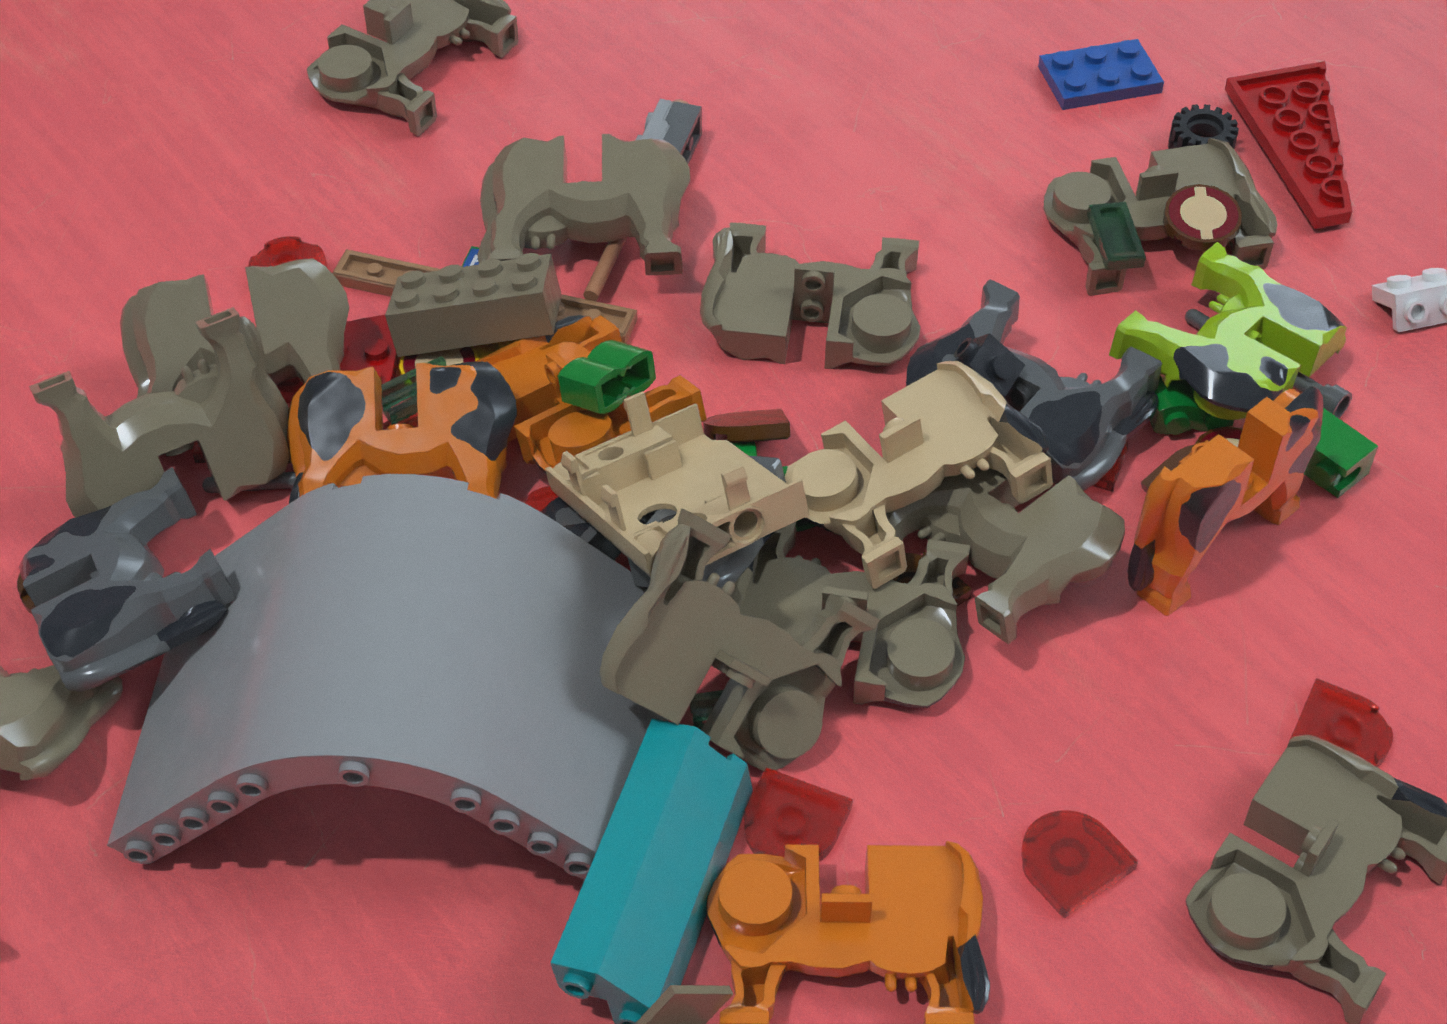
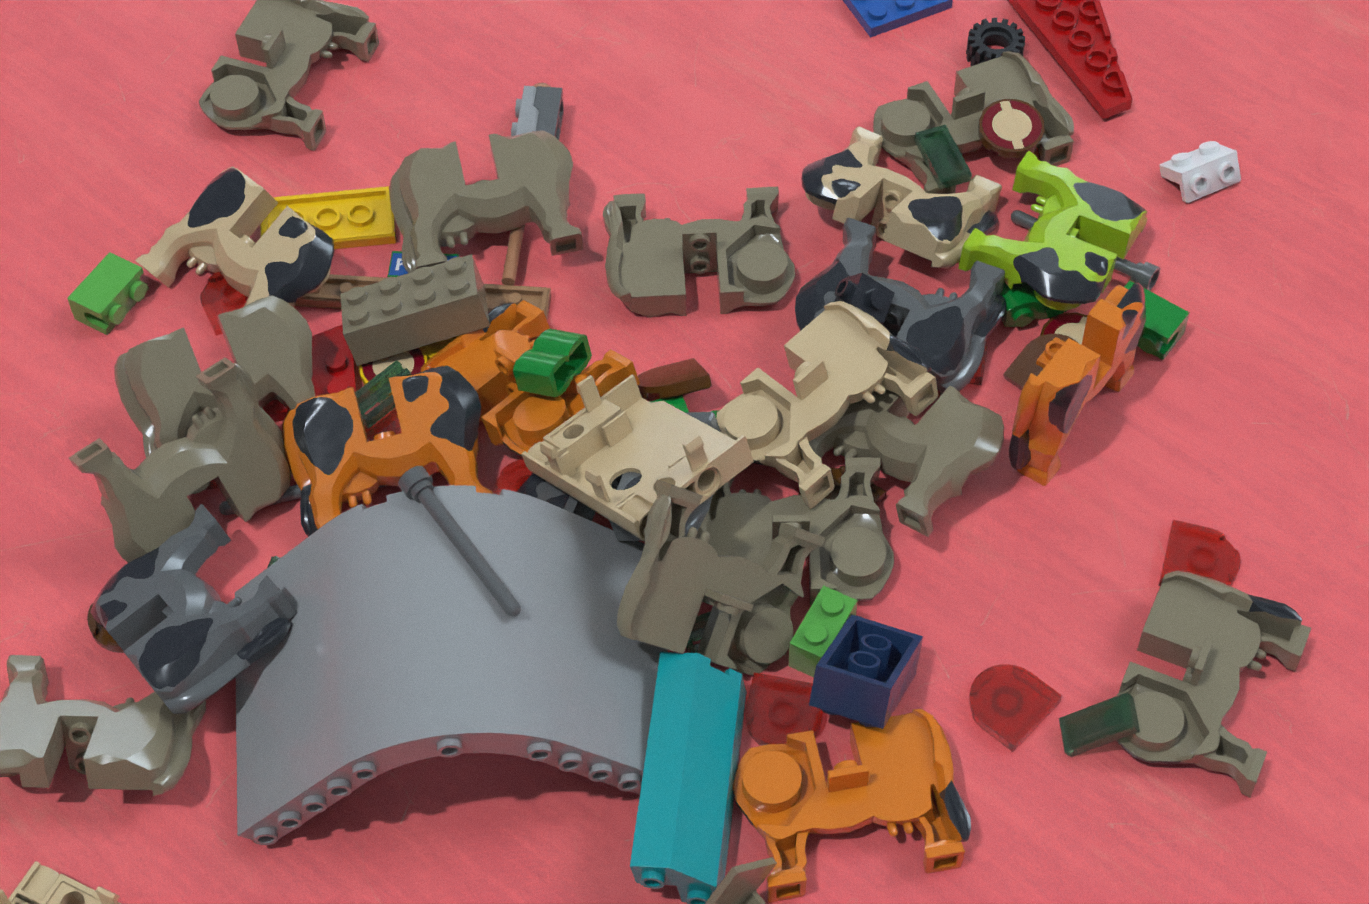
camera: 10 degrees left, 5 degrees up
(150, 242) = (108, 293): none -> bright green brick
(281, 196) = (215, 234): none -> tan animal
(399, 470) = (417, 484): none -> dark grey piece
(408, 207) = (347, 216): none -> yellow tile
(858, 735) = (819, 629): none -> bright green brick
(897, 786) = (865, 671): none -> dark blue brick
(1058, 284) = (903, 213): none -> tan animal
(1177, 902) = (1099, 724): none -> clear green tile

